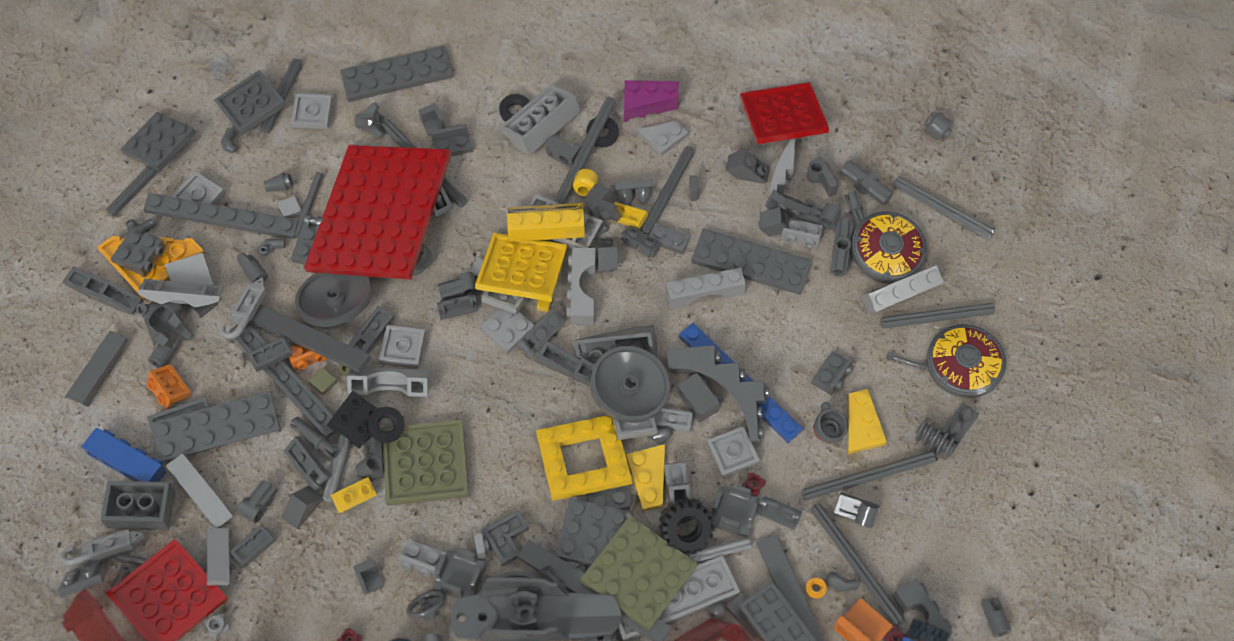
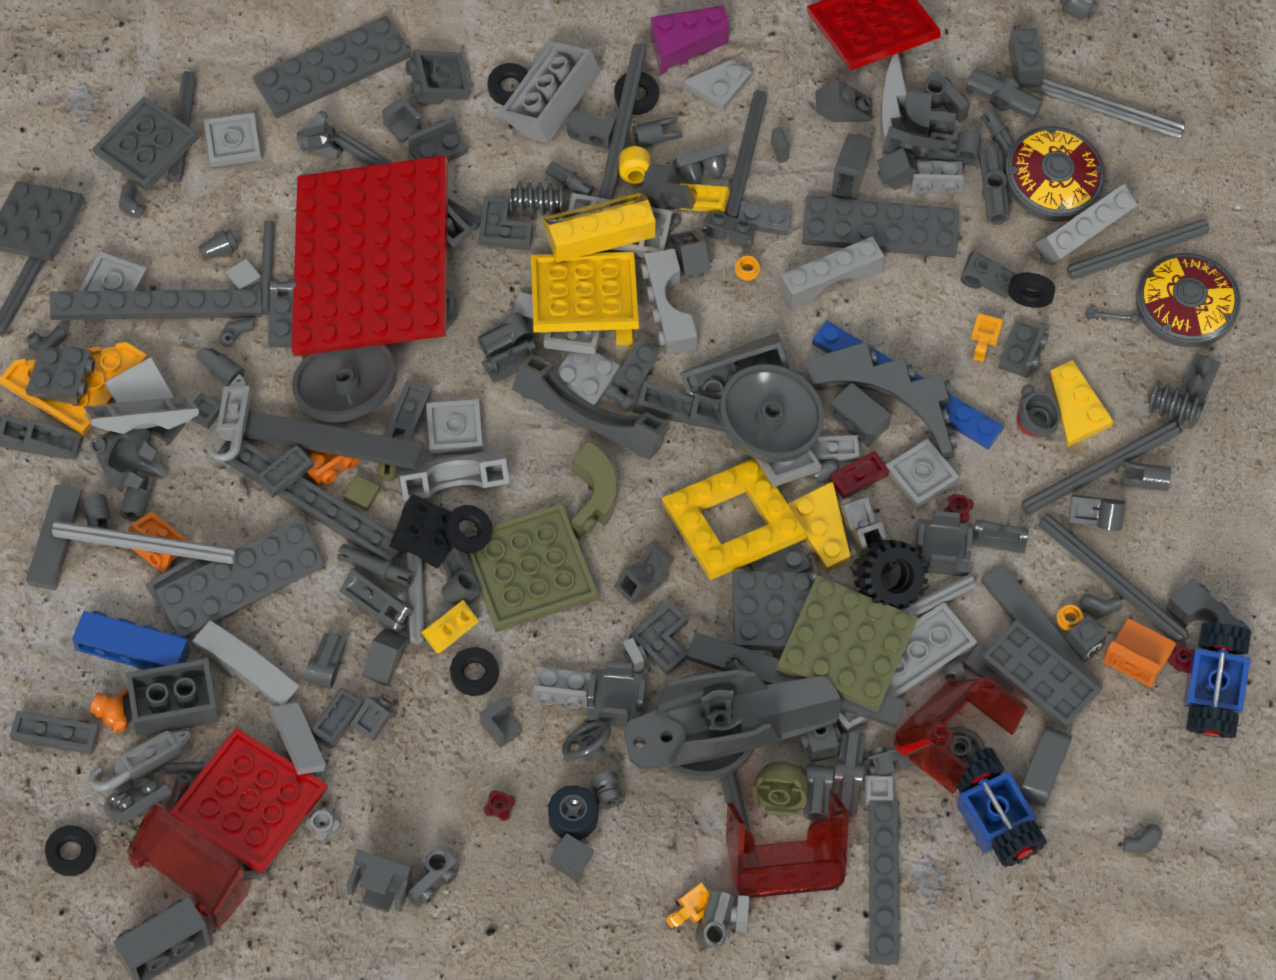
camera: 15 degrees left, 0 degrees up
(22, 596) = (67, 834): none -> black tyre
(49, 513) = (54, 732): none -> dark grey plate
(92, 504) = (111, 710): none -> orange animal
(132, 359) = (97, 511): none -> dark grey hinge
(154, 386) = (144, 542): none -> light grey axle
(230, 298) = (208, 410): none -> dark grey plate
(278, 551) = (373, 716): none -> dark grey bracket
(362, 520) = (469, 656): none -> black tyre
(465, 94) = (437, 76): none -> dark grey plate
(472, 328) = (541, 384): none -> dark grey arch
(476, 210) = (498, 230): none -> dark grey plate
(492, 424) = (599, 474): none -> olive arch
(506, 487) = (647, 575): none -> flat silver brick
(508, 194) = (536, 198): none -> dark grey piece
(537, 184) = (569, 180): none -> dark grey axle
(603, 162) = (652, 133): none -> dark grey hinge
(646, 268) = (747, 262): none -> light orange plate
(685, 443) = (859, 475): none -> dark red plate
(740, 213) = (851, 166): none -> dark grey slope
(800, 188) = (921, 119): none -> dark grey brick
(807, 355) = (986, 332): none -> light orange plate
(818, 310) = (985, 272): none -> dark grey plate
(823, 607) = (1086, 638): none -> dark grey brick
(849, 330) = (1028, 280): none -> black tyre
(888, 159) = (1026, 57): none -> dark grey brick
(907, 491) = (1153, 476): none -> dark grey hinge

